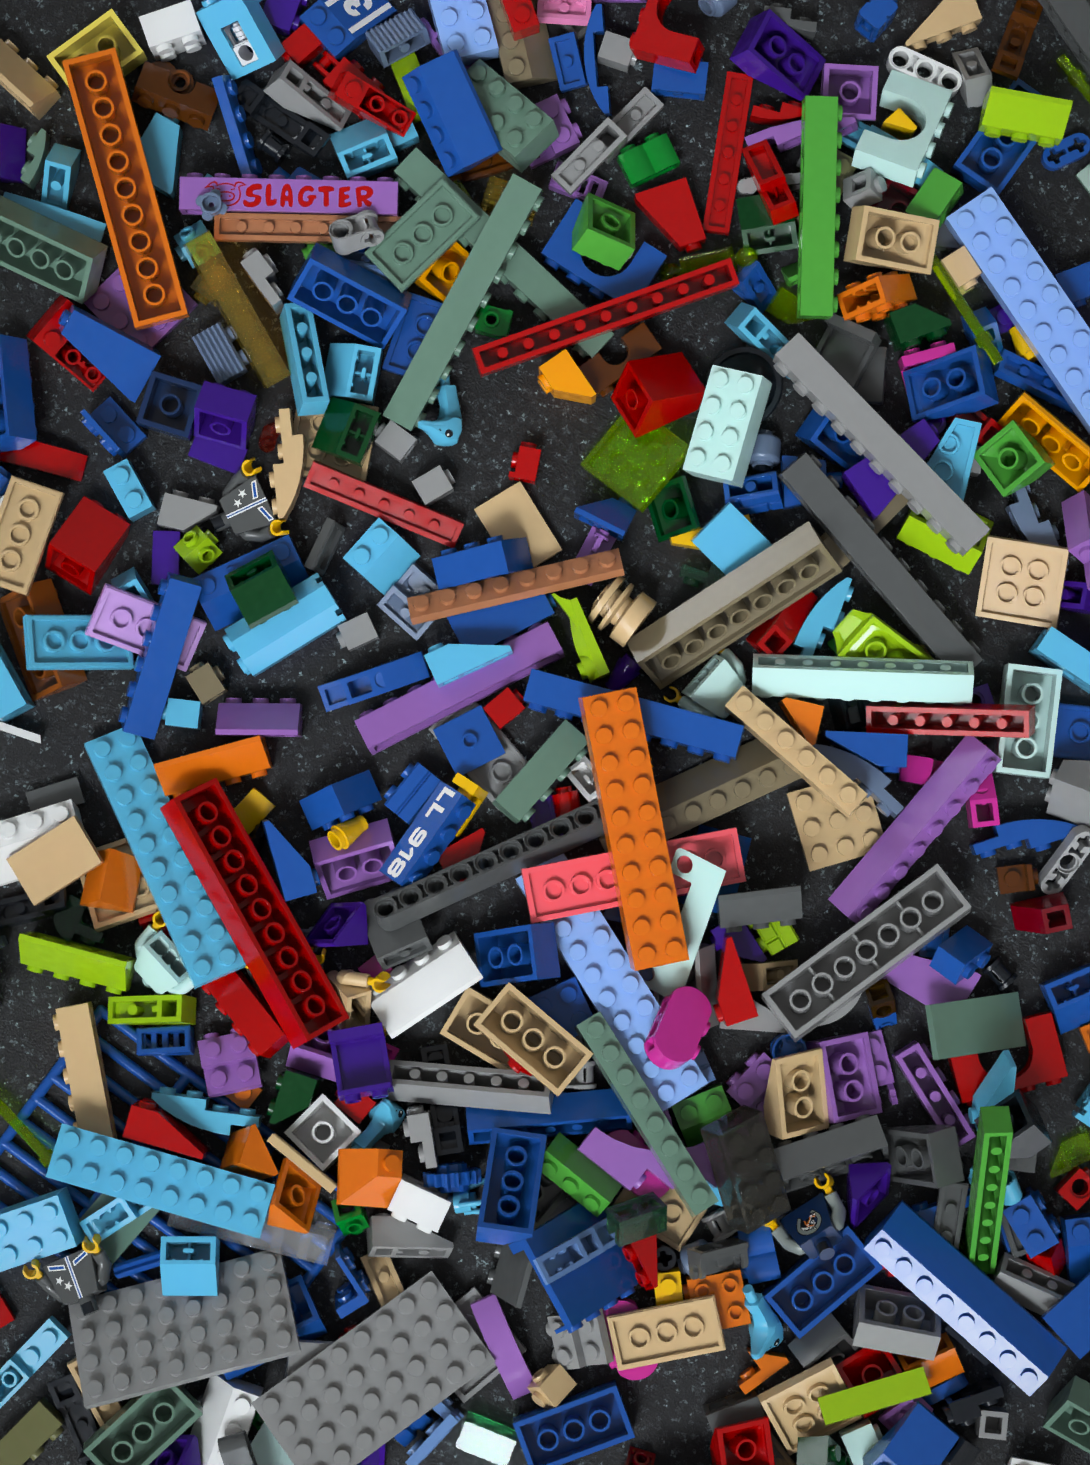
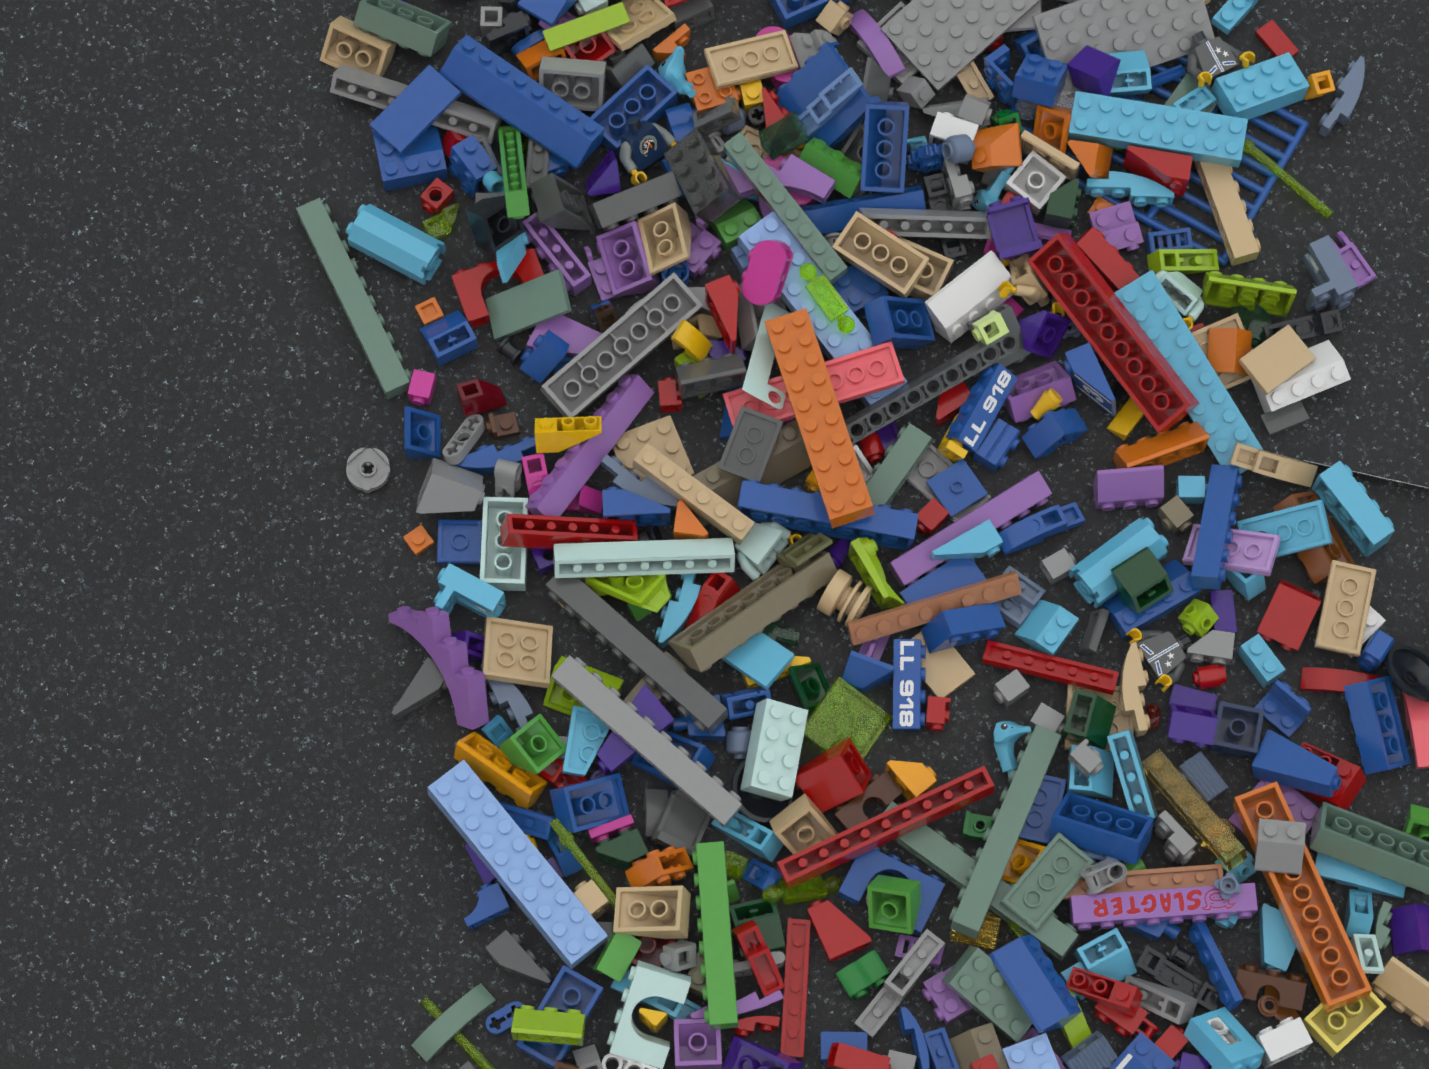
camera: 170 degrees right, 15 degrees down
(60, 119) = (1367, 953): none -> light aqua slope
(79, 728) = (1273, 464): none -> tan slope
(143, 241) = (1279, 846): none -> light grey slope
(194, 477) = (1209, 676): none -> red brick
(231, 1267) = (1093, 71): none -> dark purple slope
(302, 1262) = (1040, 80): none -> blue brick
(357, 376) = (1086, 759): none -> light grey brick
(388, 1232) = (975, 109): none -> light grey brick
(407, 928) = (996, 329): none -> yellowish green brick
(418, 1174) = (958, 148): none -> sand blue head
(459, 1272) = (916, 92): none -> light grey brick
(557, 498) = (908, 685): none -> blue brick
(606, 988) = (827, 298): none -> clear neon green plate
(665, 673) = (803, 549): none -> olive slope
(700, 332) = (801, 825): none -> tan slope
(719, 807) = (750, 444): none -> dark grey plate
(778, 952) = (692, 340): none -> yellow slope
(811, 896) = (669, 396): none -> red brick
(945, 846) = (562, 433): none -> yellow slope
(1019, 800) = (507, 478): none -> light grey piece
(1052, 491) = (497, 730): none -> dark azure plate
(1053, 218) = (512, 958): none -> dark grey slope

